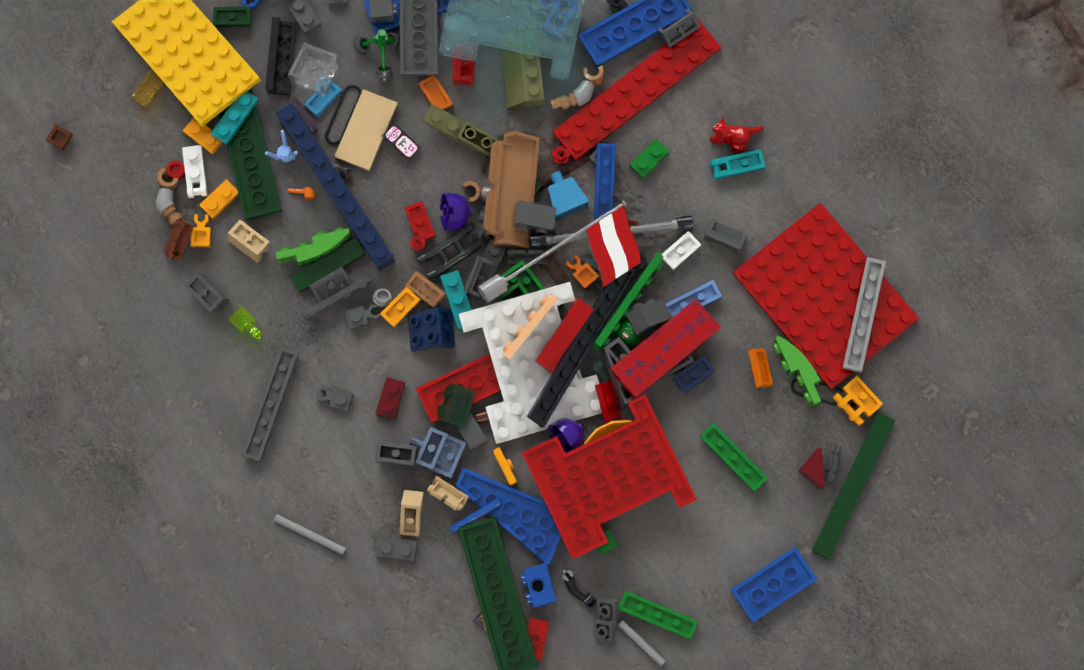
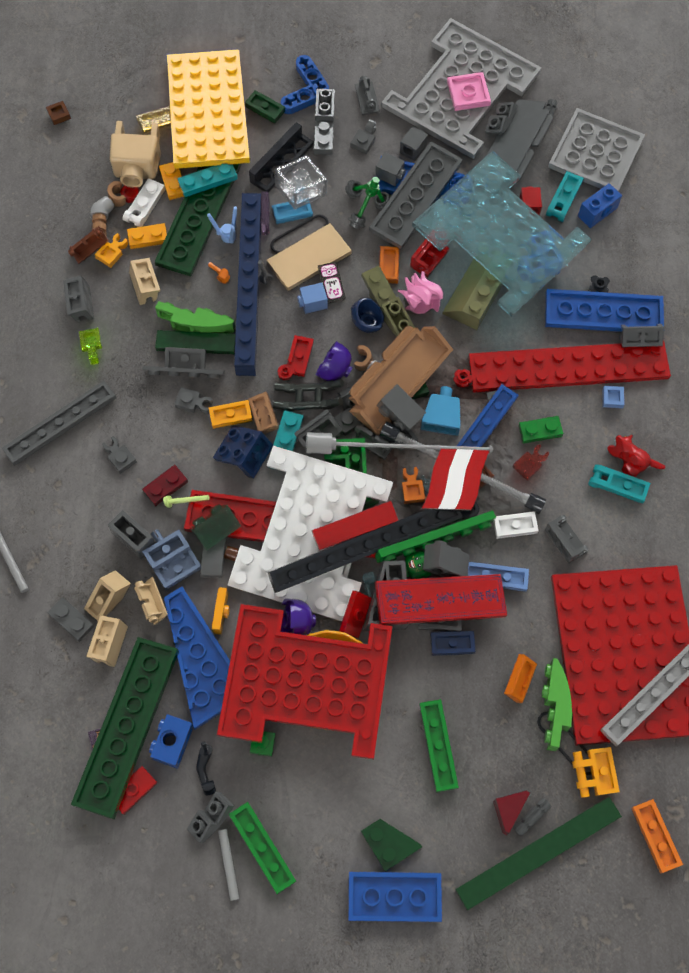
camera: 30 degrees right, 10 degrees down
(159, 137) = (134, 155): none -> tan piece
(382, 297) = (221, 396): light grey plate -> none
(396, 165) = (313, 298): none -> medium blue brick
(403, 409) = (168, 501): none -> yellowish green piece
(437, 546) = (107, 640): none -> tan hinge
(451, 153) = (367, 315): none -> dark blue hair
(476, 515) = (163, 636): blue bar -> none
(482, 106) = (422, 294): none -> bright pink hair
(523, 332) = (336, 492): light nougat plate -> none
(583, 92) = (518, 338): medium nougat piece -> none
(659, 194) = (530, 464): none -> clear red plate
(688, 94) = (613, 397): none -> medium blue plate
(744, 551) = (389, 844): none -> dark green wing
(928, 417) = (657, 836): none -> orange plate

